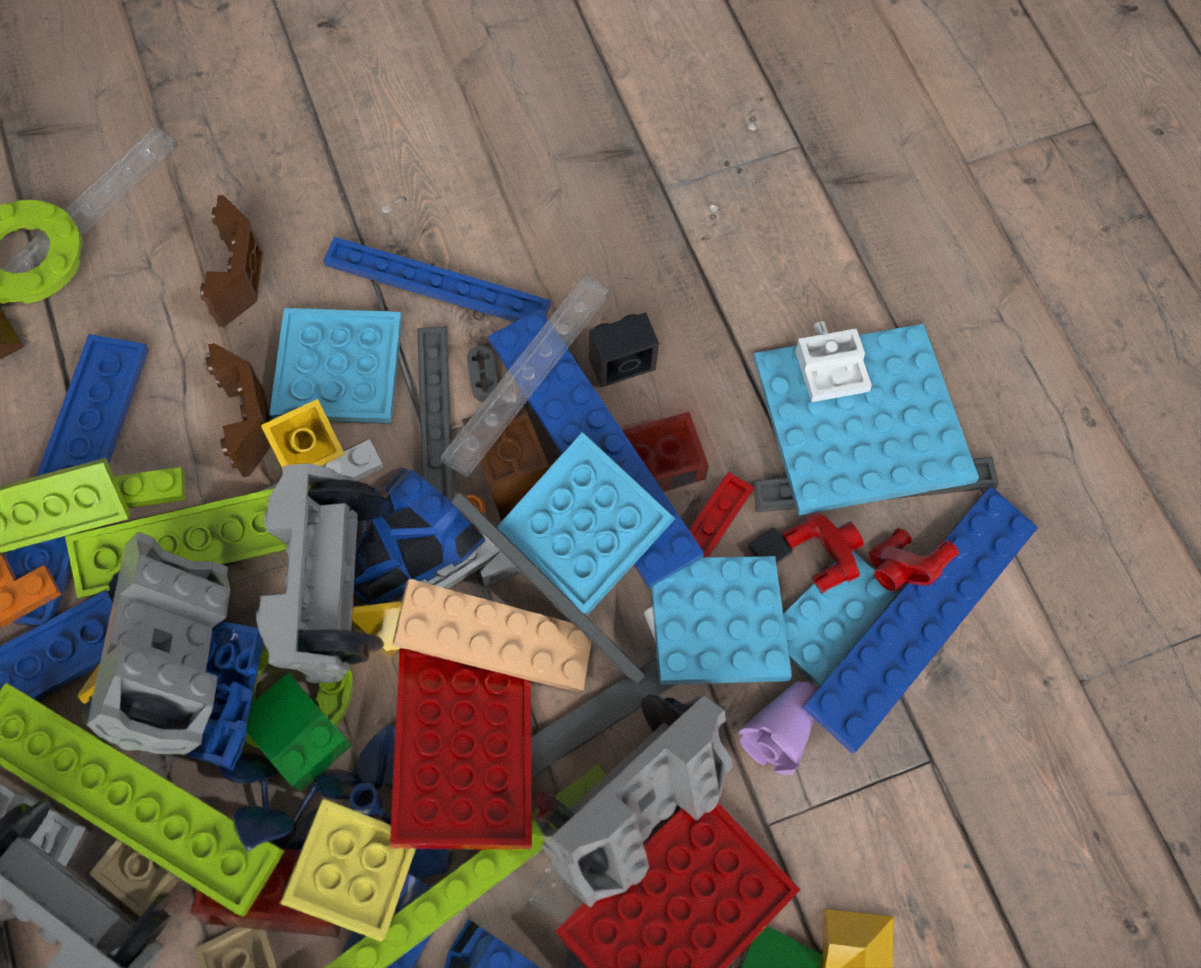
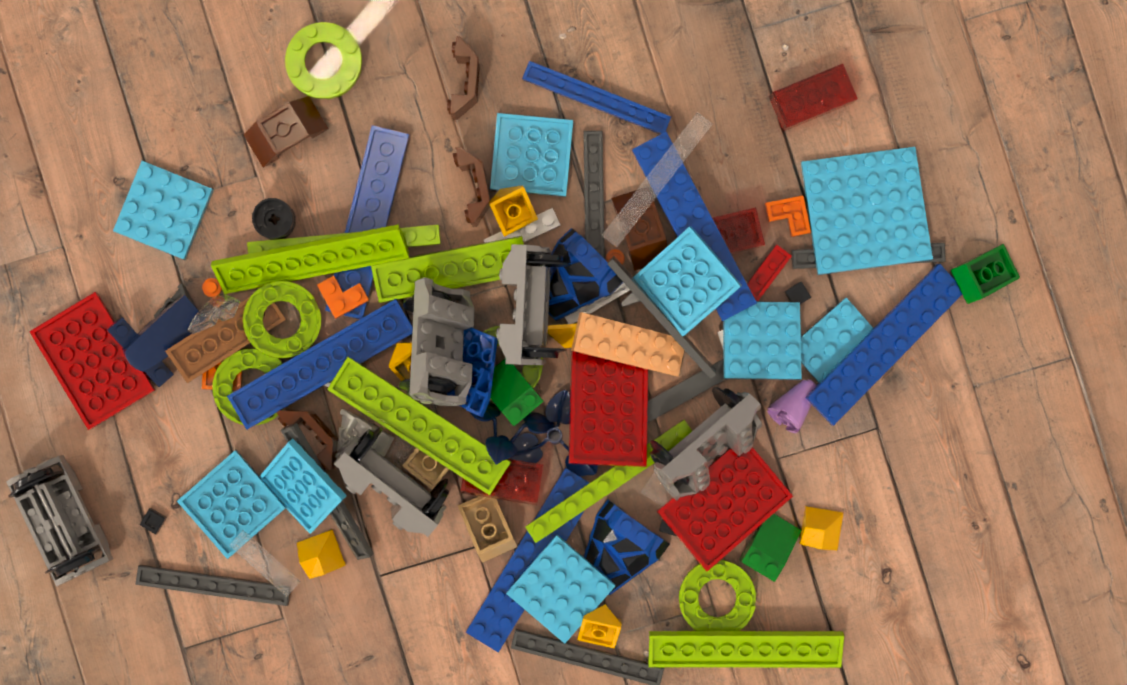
camera: 10 degrees right, 20 degrees up
(348, 871) = (546, 474): light yellow plate -> none
(476, 374) = (620, 166): dark grey beam -> none
(623, 349) = (717, 158): black brick -> none
(749, 422) = (793, 210): none -> orange plate
(761, 264) = (813, 97): none -> clear red brick
(832, 363) = (850, 177): white plate -> none
(838, 542) = (840, 295): red connector -> none
(902, 567) = (875, 316): red connector -> none
(1063, 499) = (985, 274): none -> green slope

